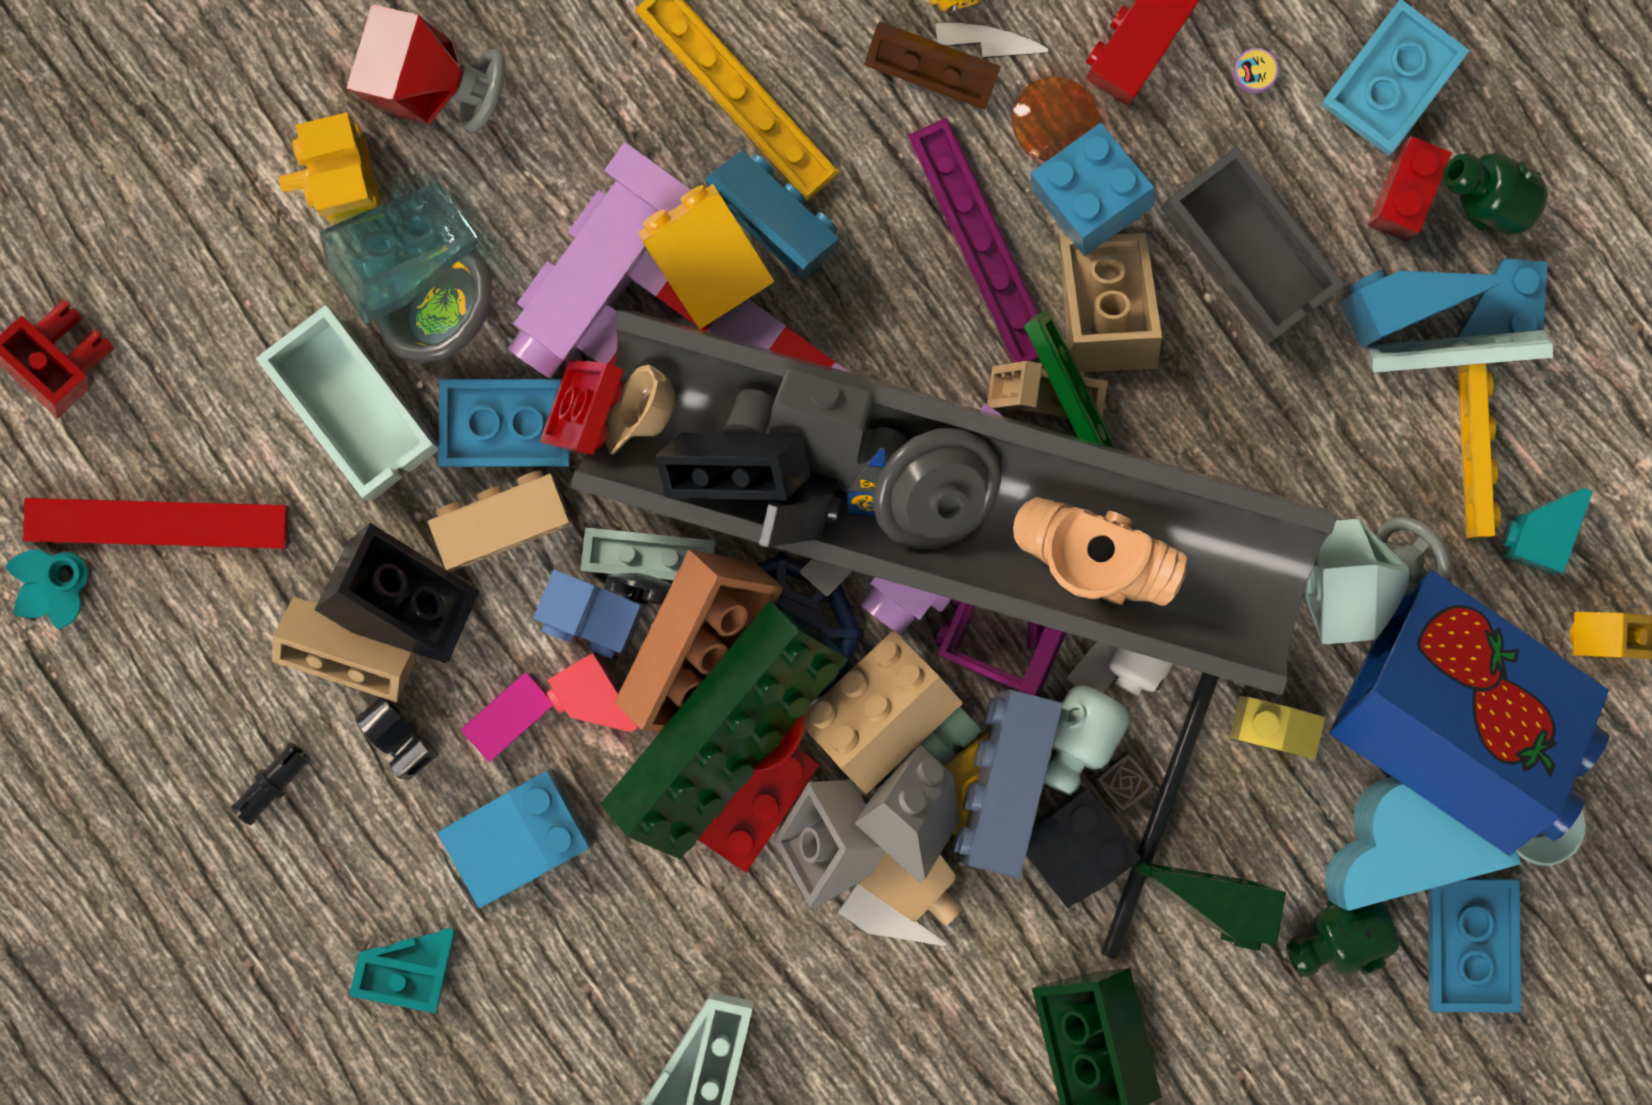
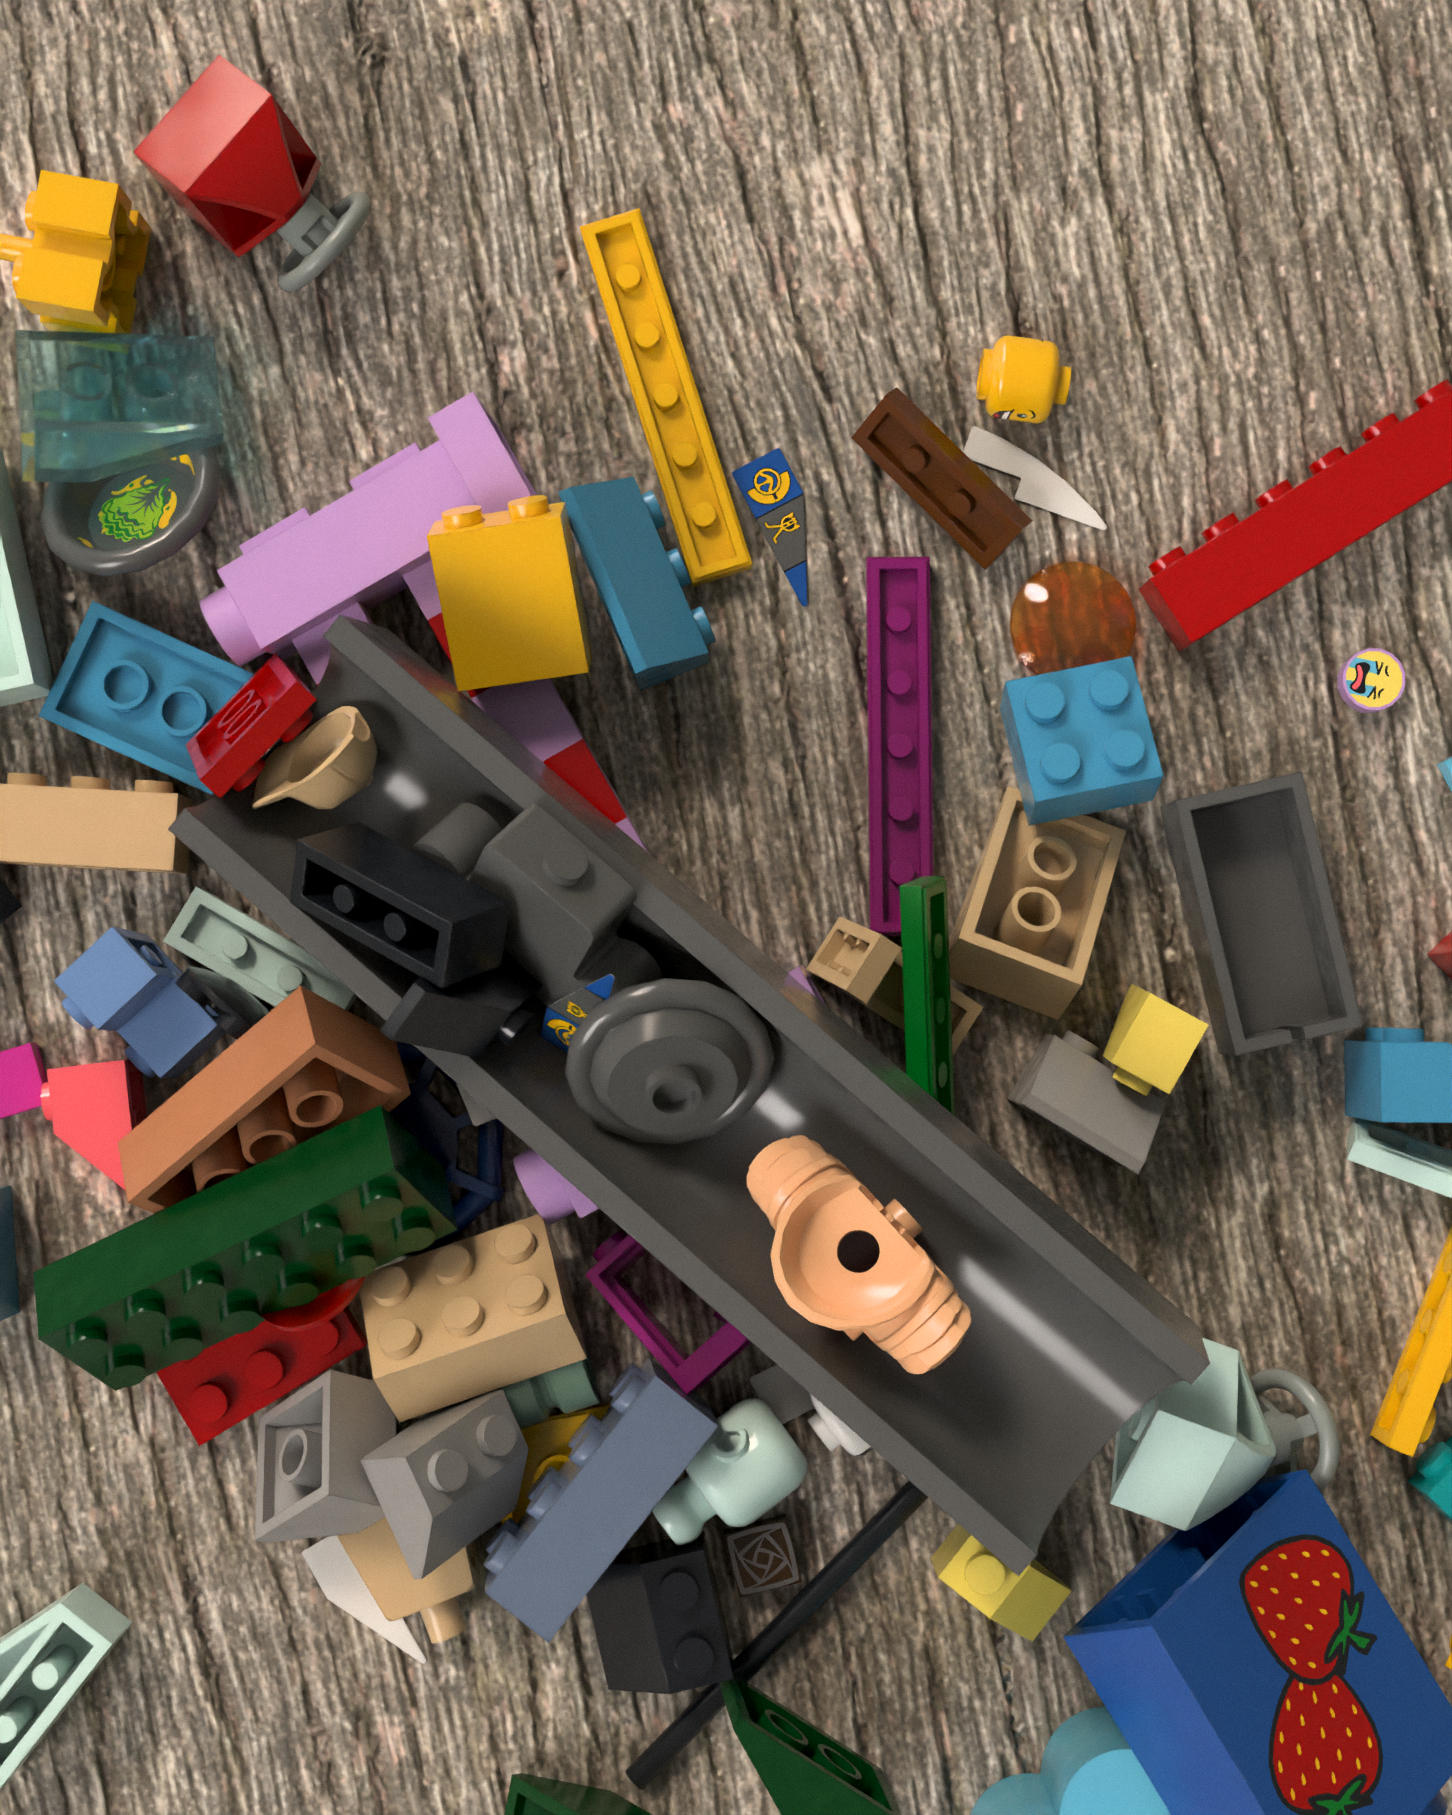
camera: 25 degrees right, 0 degrees up
(838, 129) = (779, 510): none -> sticker
(1198, 409) = (1085, 1101): none -> light grey slope
(1220, 352) = (1151, 1041): none -> light yellow slope

